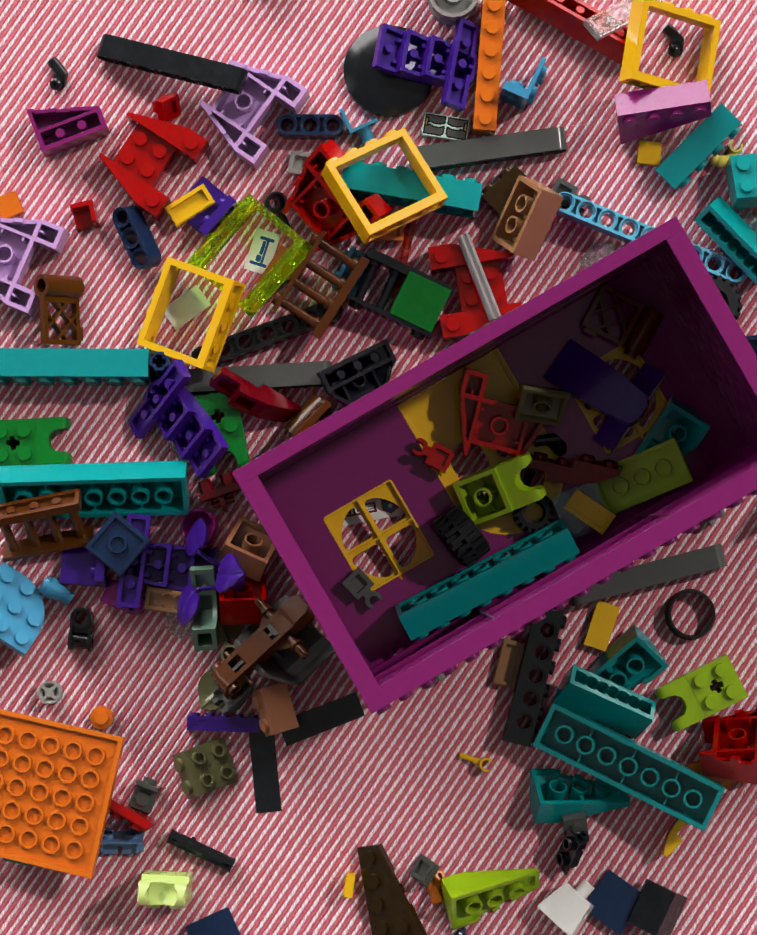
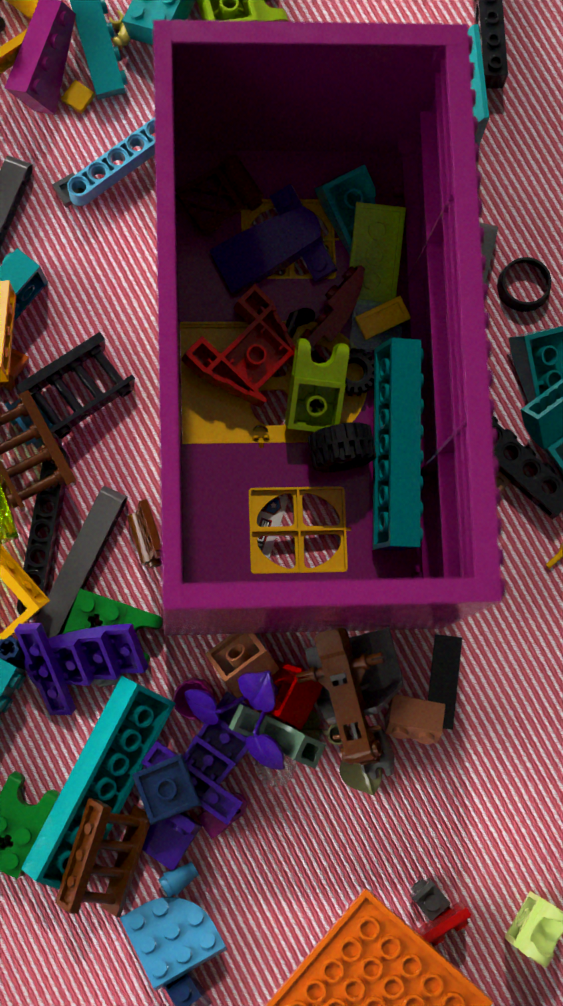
camera: 65 degrees left, 5 degrees down
(46, 692) = (278, 945): light grey wheel -> none
(81, 631) = (232, 875): black piece -> none
(101, 717) = (329, 900): orange plate -> none
(130, 840) = (465, 939): medium blue hinge -> none
(161, 599) = (245, 775): medium nougat plate -> none
(200, 850) = (505, 877): black pin -> none
(205, 768) = (434, 822): olive bracket -> none
(208, 493) = (170, 648): dark red hips -> none
(223, 723) = (399, 780): dark purple piece -> none
(250, 399) = (99, 577): dark red slope -> none
(265, 773) = (467, 765): black sticker -> none
(358, 373) = (133, 463): black wedge -> none
(359, 584) = (337, 570): dark grey plate -> none
(404, 254) = (41, 363): clear red bar -> none
(420, 301) = (94, 368): green tile -> none
(437, 456) = (252, 430): red plate -> none
(472, 314) = (112, 312): red wedge -> none
(479, 277) = (103, 300): light grey axle -> none
(497, 194) = (38, 237): dark brown brick -> none
(527, 217) = (72, 226): medium nougat brick -> none
(541, 404) = (258, 301): olive slope -> none
(596, 253) = (145, 188): clear gear -> none
(601, 625) = (503, 376): yellow tile -> none

